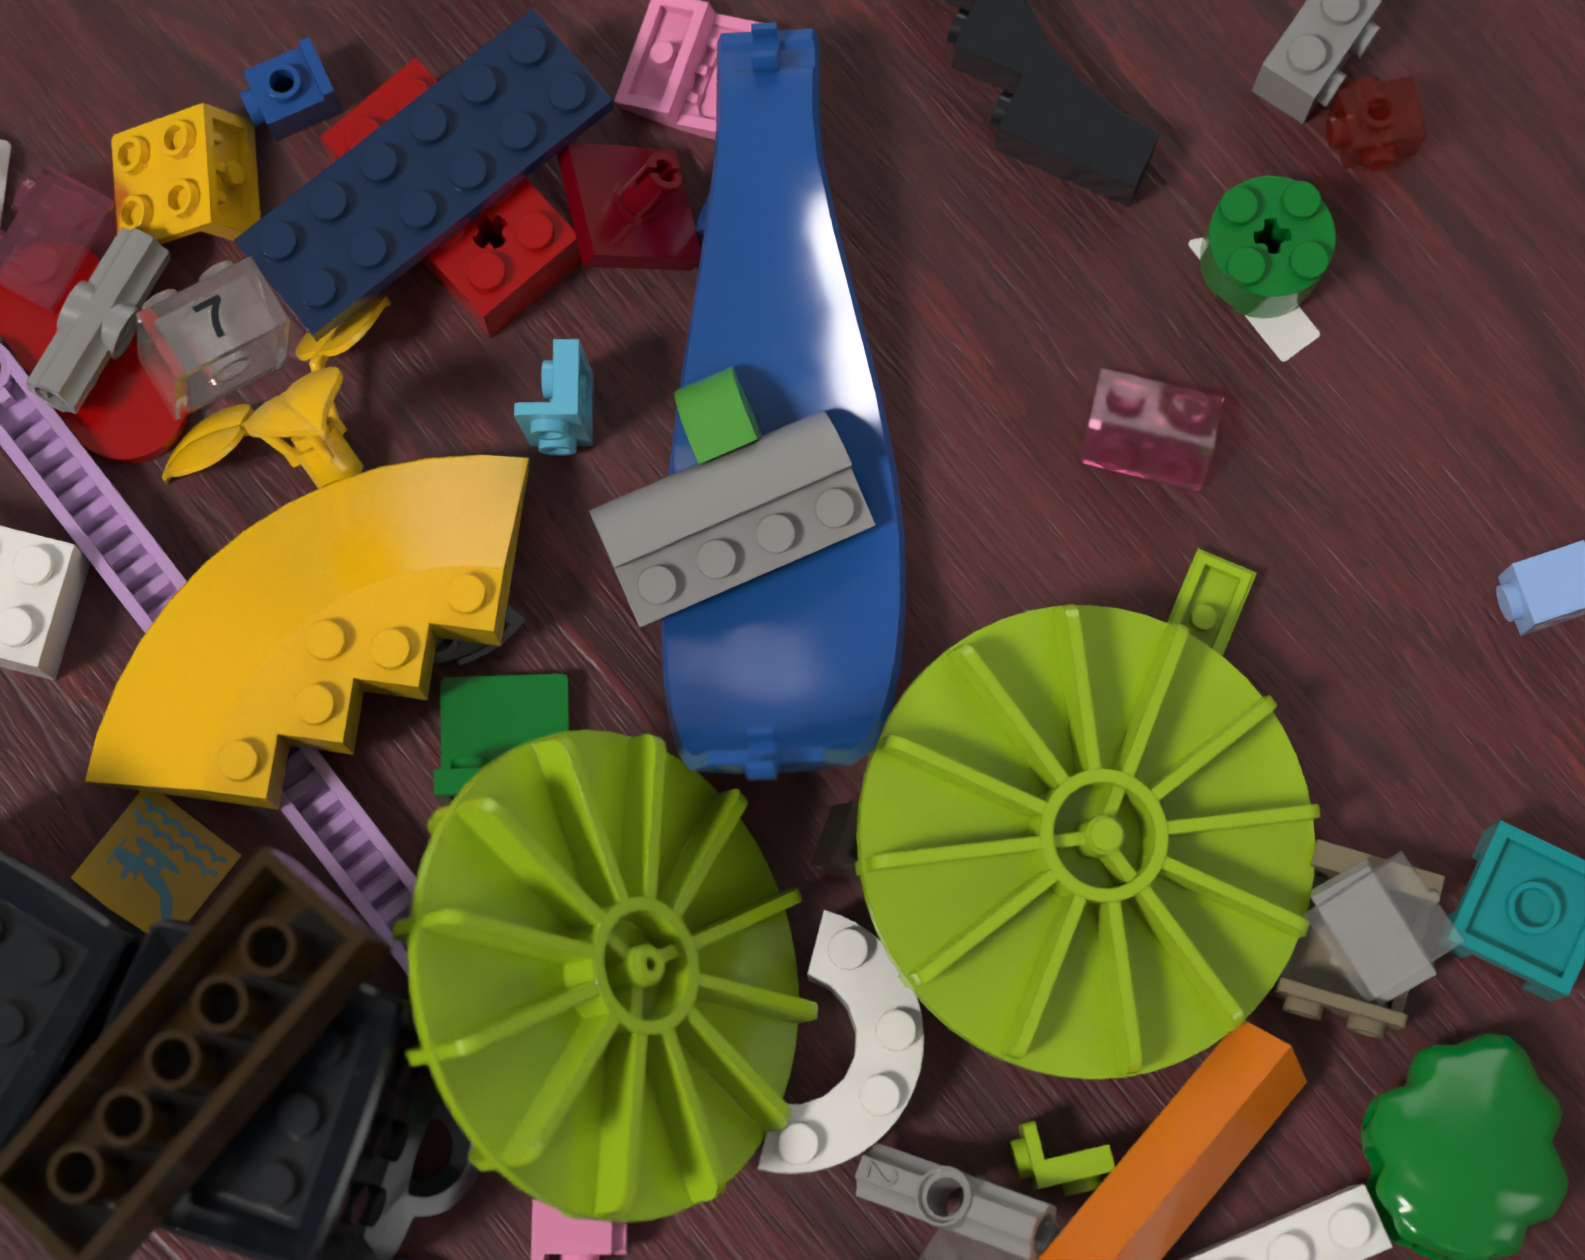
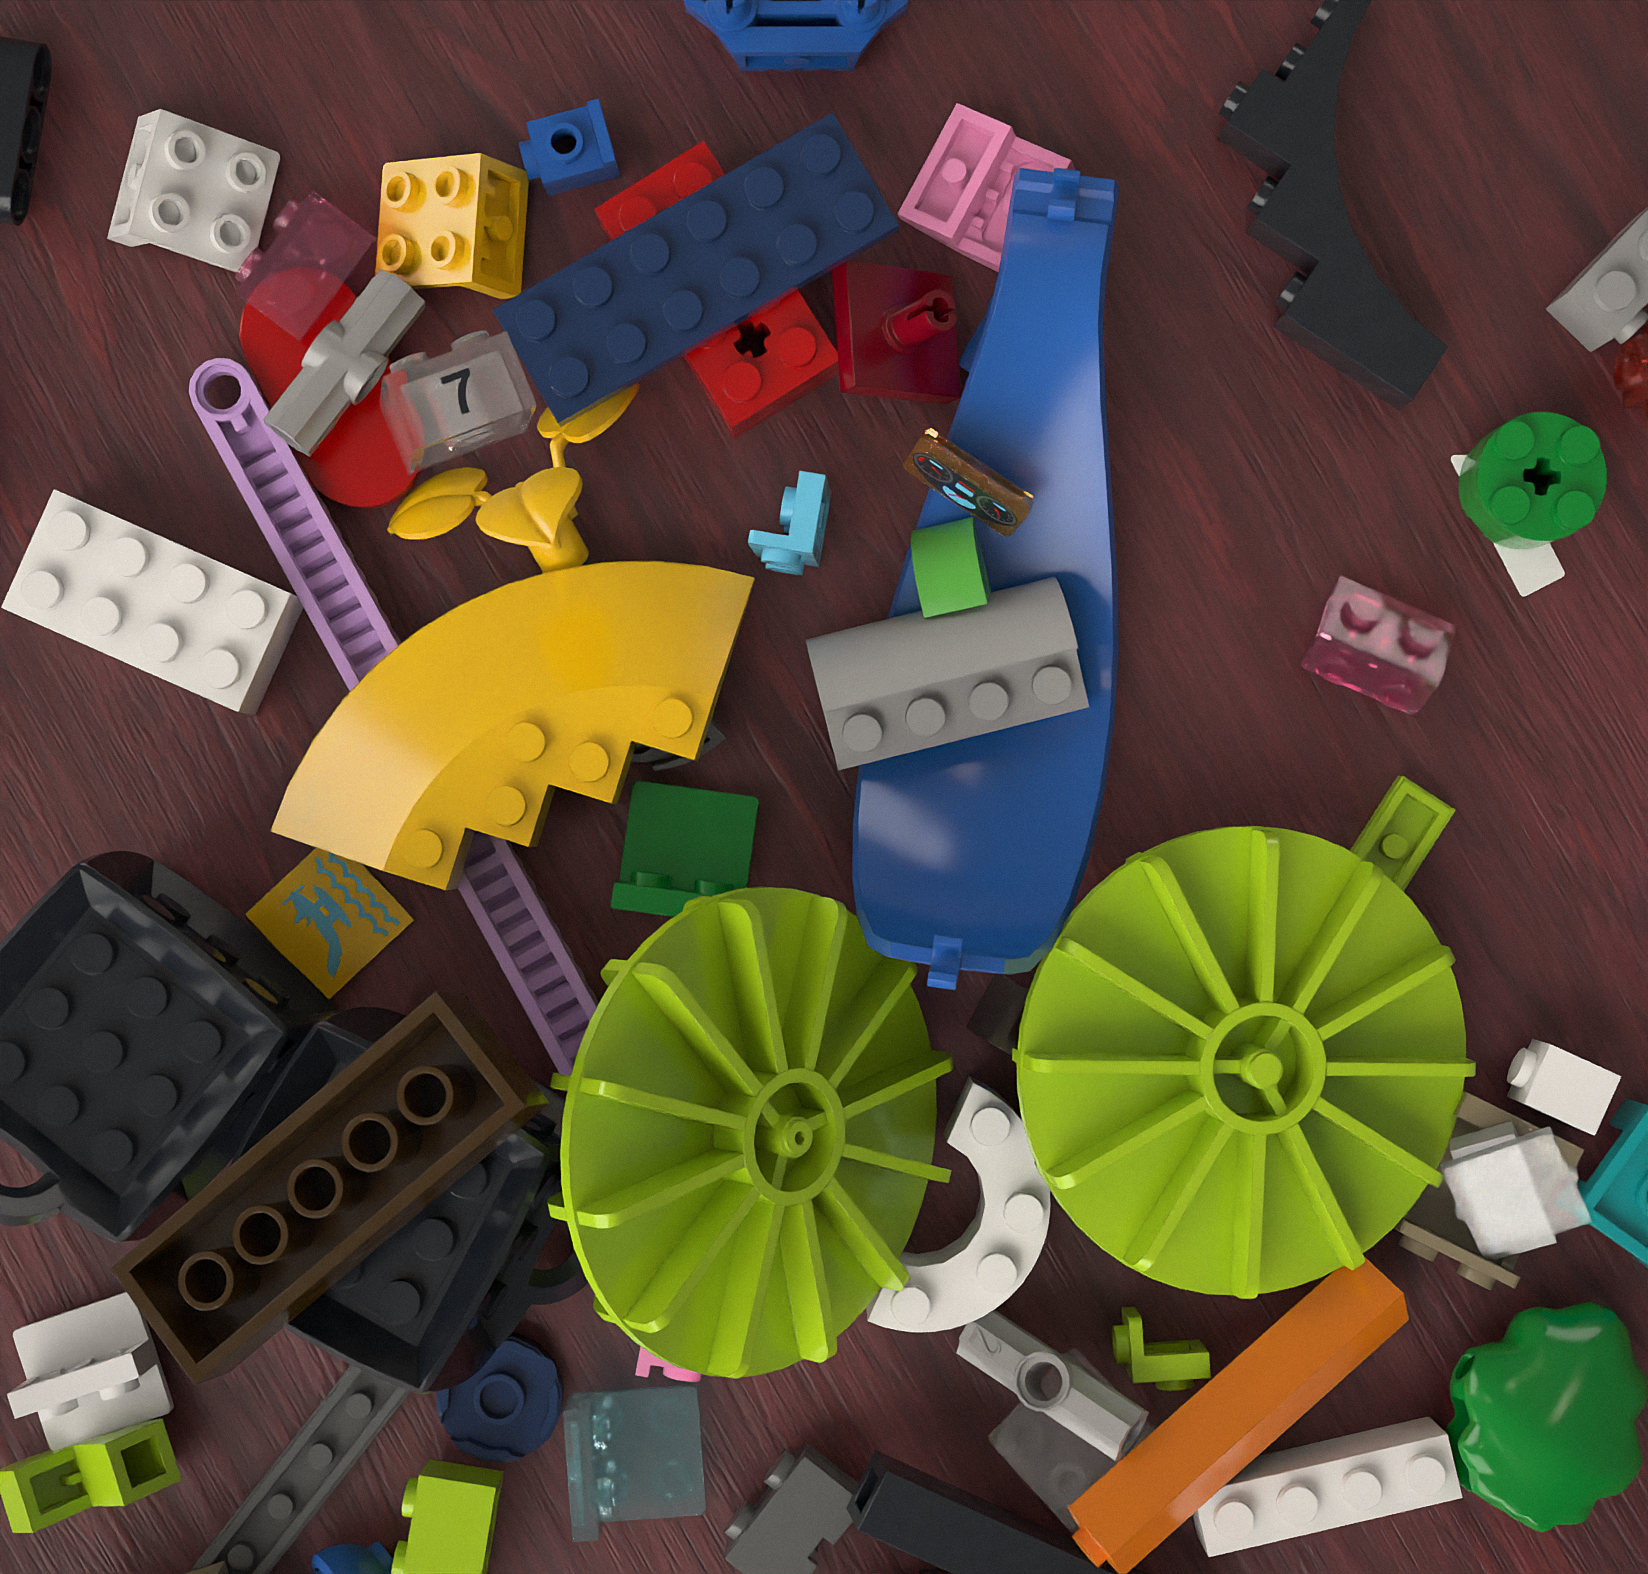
camera: 10 degrees right, 10 degrees up
(719, 332) = (968, 483): none -> slope
(1411, 819) = (1561, 1085): none -> white brick

